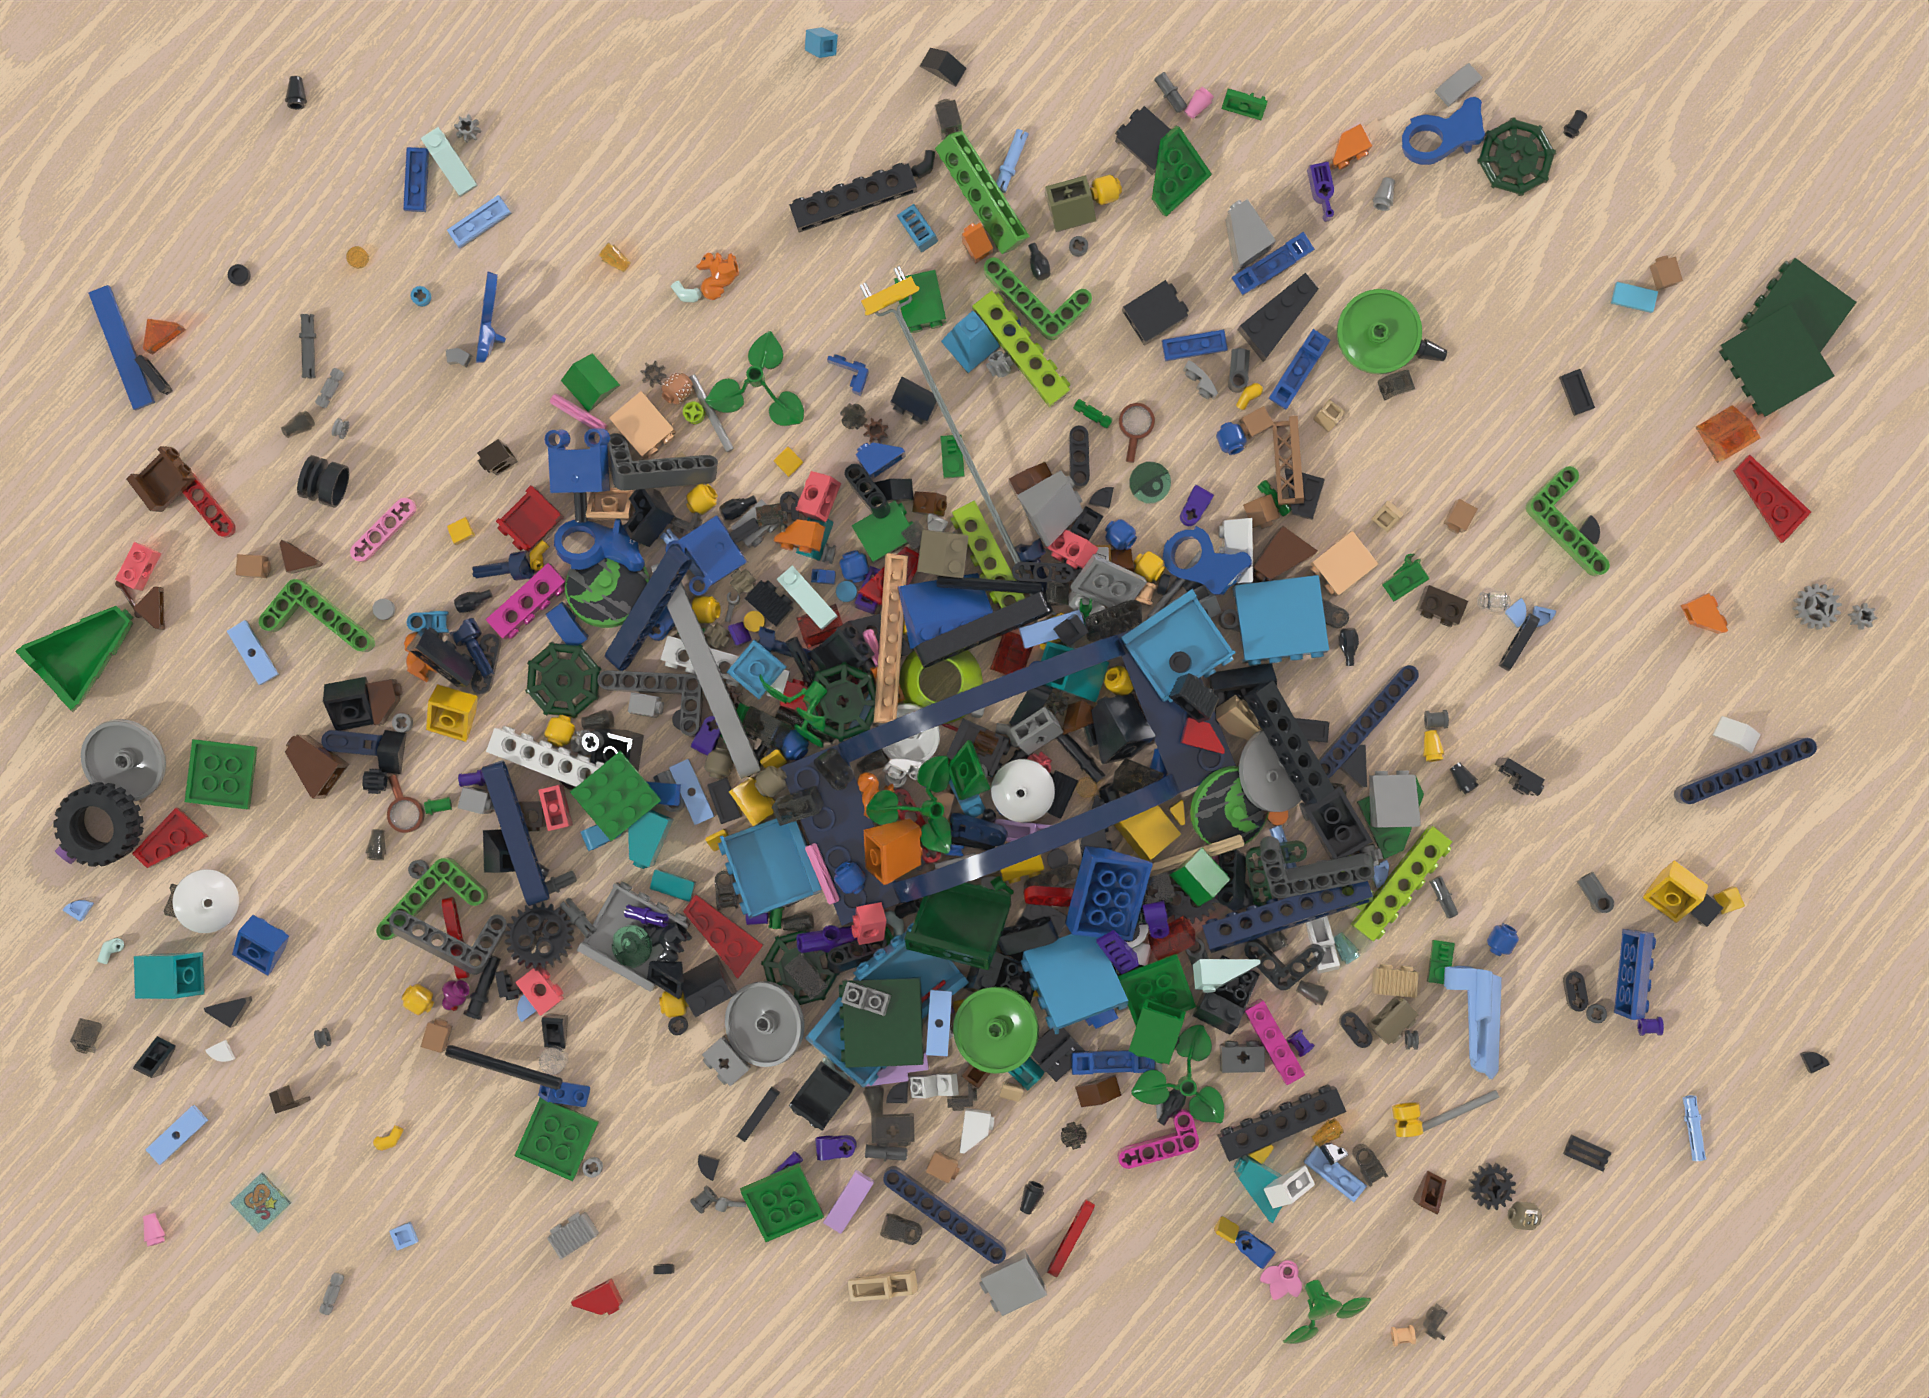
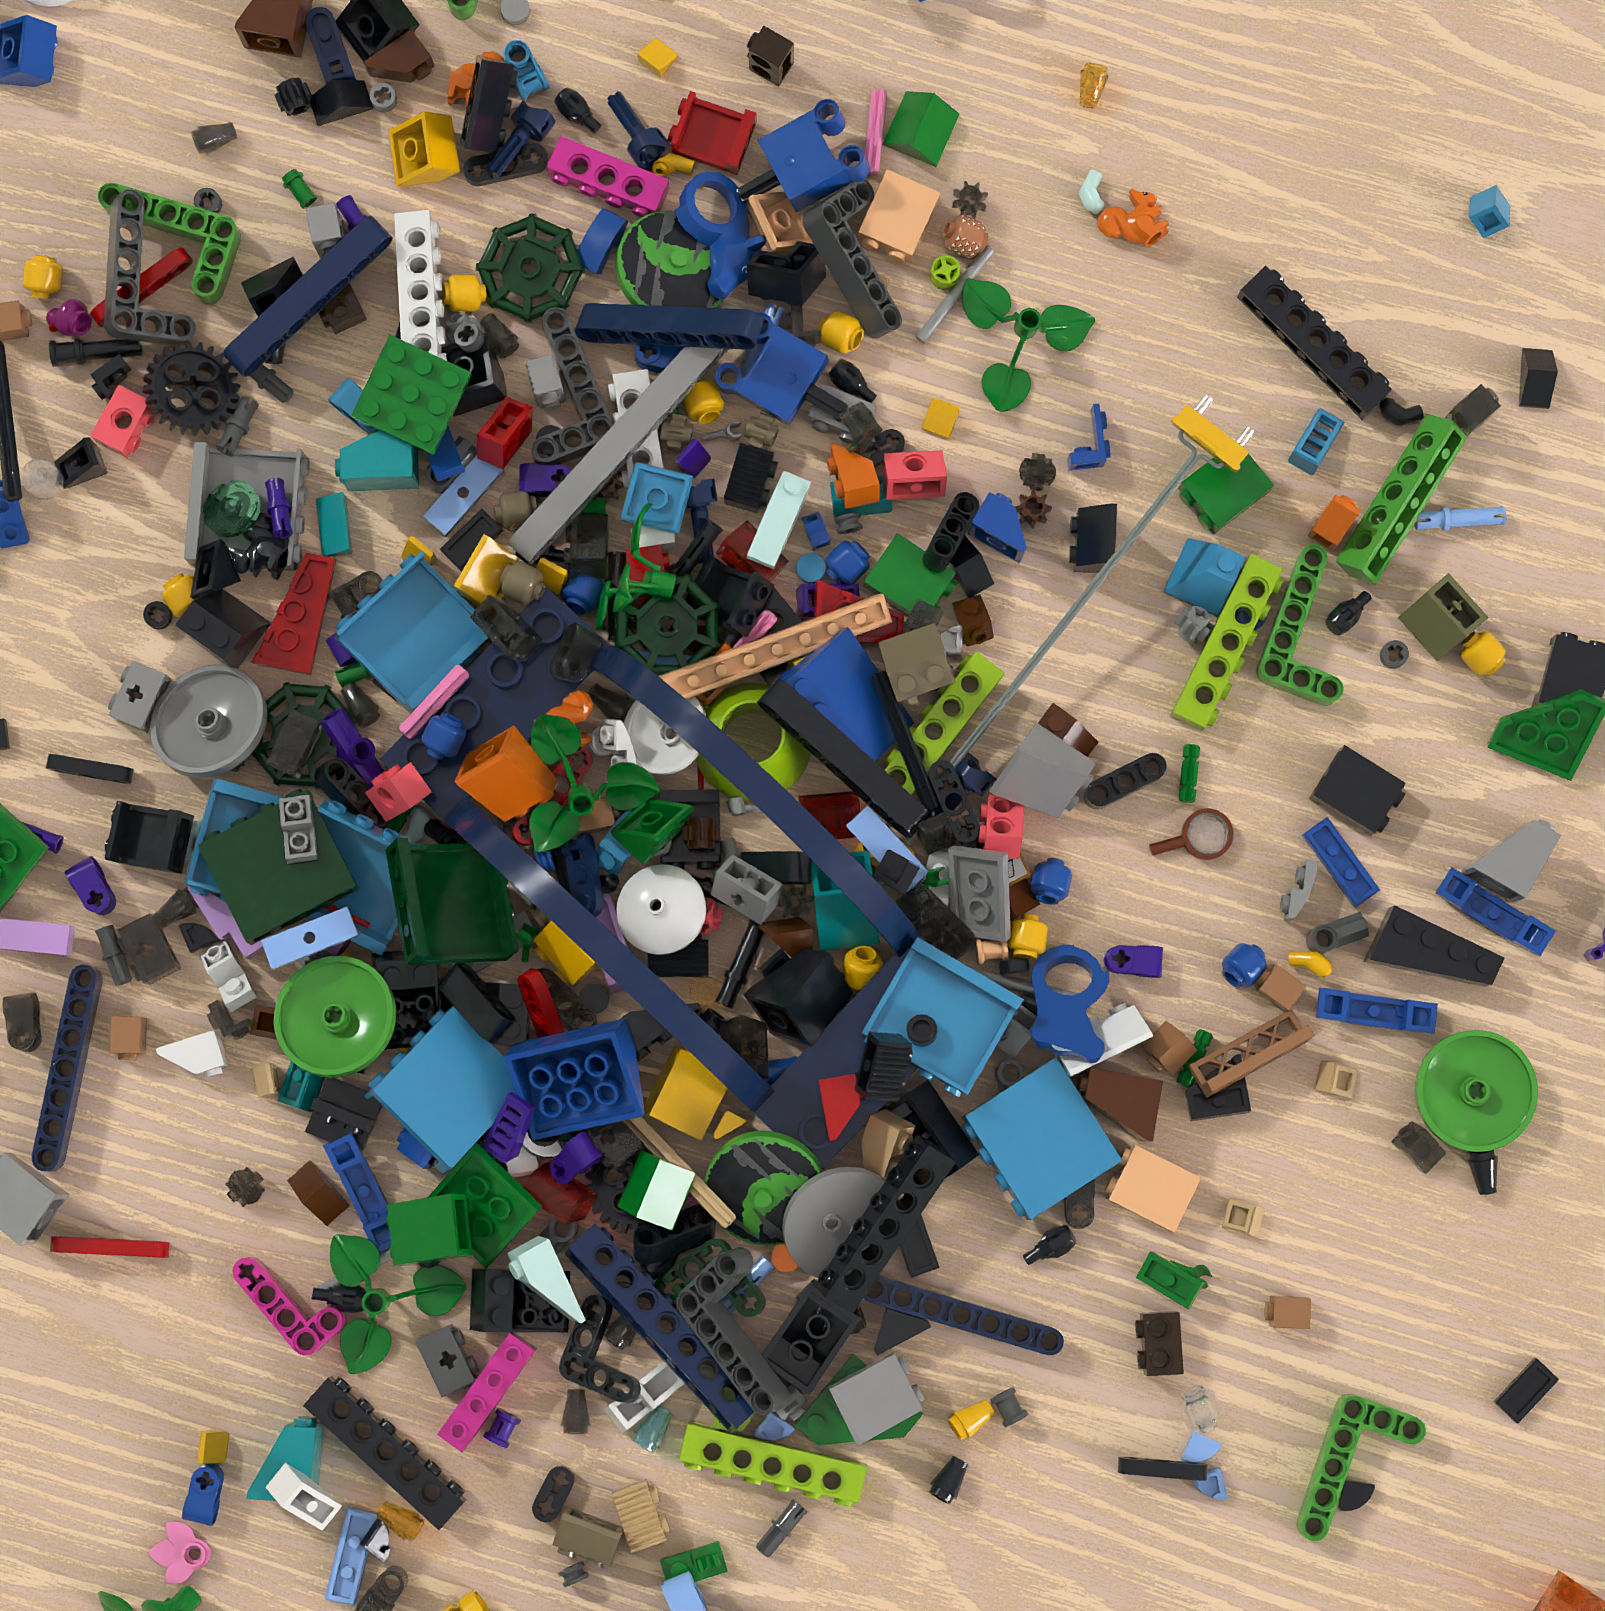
camera: 60 degrees right, 5 degrees down
(404, 813) = (270, 152): piece -> none
(524, 1008) = (90, 414): light blue tile -> none
(555, 807) = (363, 332): coral brick -> none
(665, 747) = (504, 432): none -> red brick
(753, 621) = (719, 469): yellow tile -> none
(951, 458) = (1040, 623): green plate -> none
(1031, 1196) = (142, 1170): black cone -> none
(1086, 523) = (1043, 831): black slope -> none
(1102, 497) = (1087, 836): black tile -> none
(1149, 482) = (1136, 888): clear green tile -> none
(1261, 1154) = (332, 1445): yellow slope -> none
(1522, 779) = (984, 1560): black plate -> none

